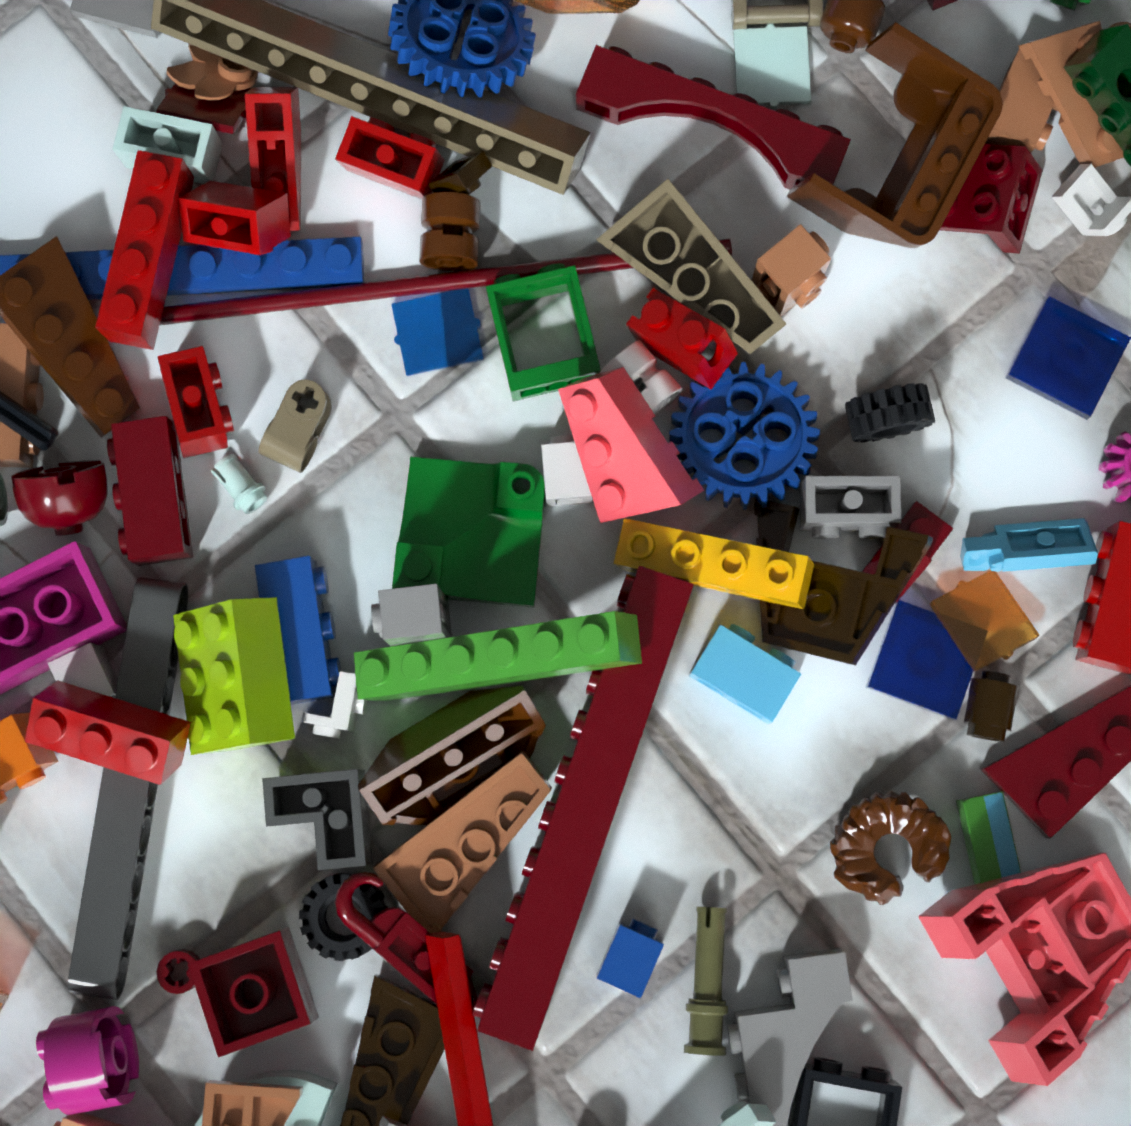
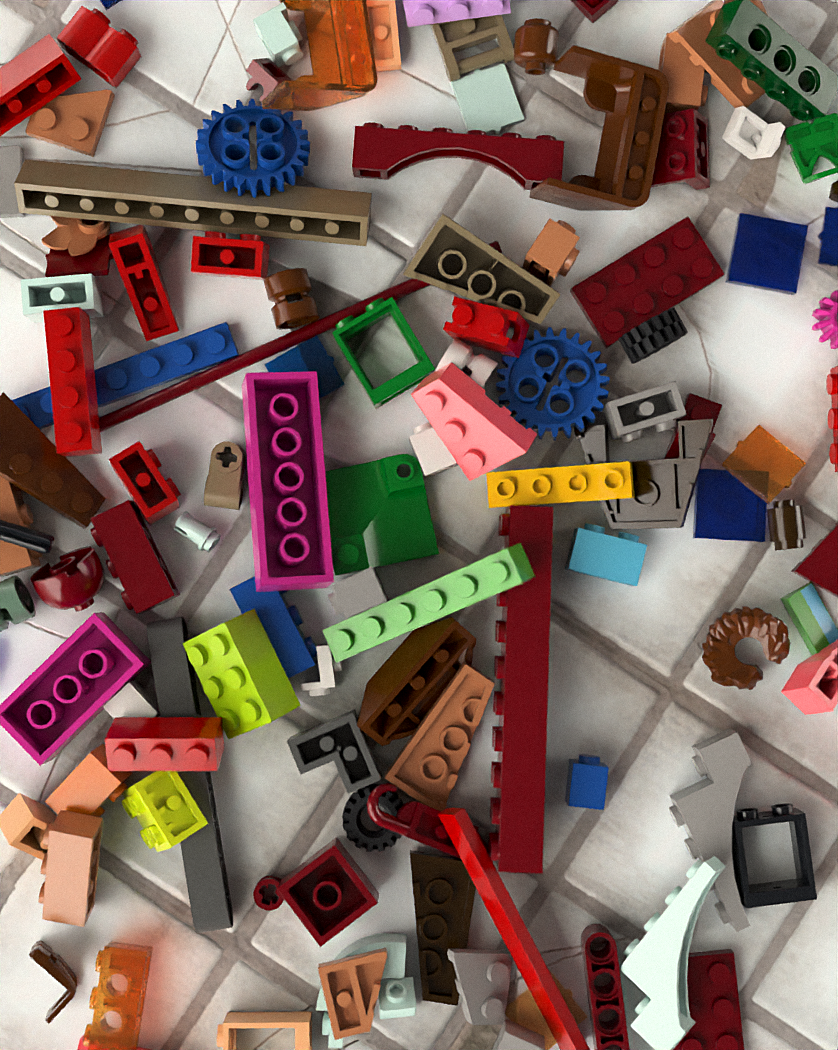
camera: 25 degrees left, 5 degrees up
(79, 816) = (163, 809): none -> neon yellow bracket
(88, 1061) = (227, 977): dark pink brick -> none
(235, 217) = (130, 337): red brick -> none
(369, 452) = (287, 481): none -> dark pink brick
(462, 175) = (287, 254): dark brown plate -> none
(707, 1005) = (650, 798): olive pin -> none
(912, 340) = (647, 281): none -> dark red plate
(1030, 546) = (781, 401): medium azure hinge -> none

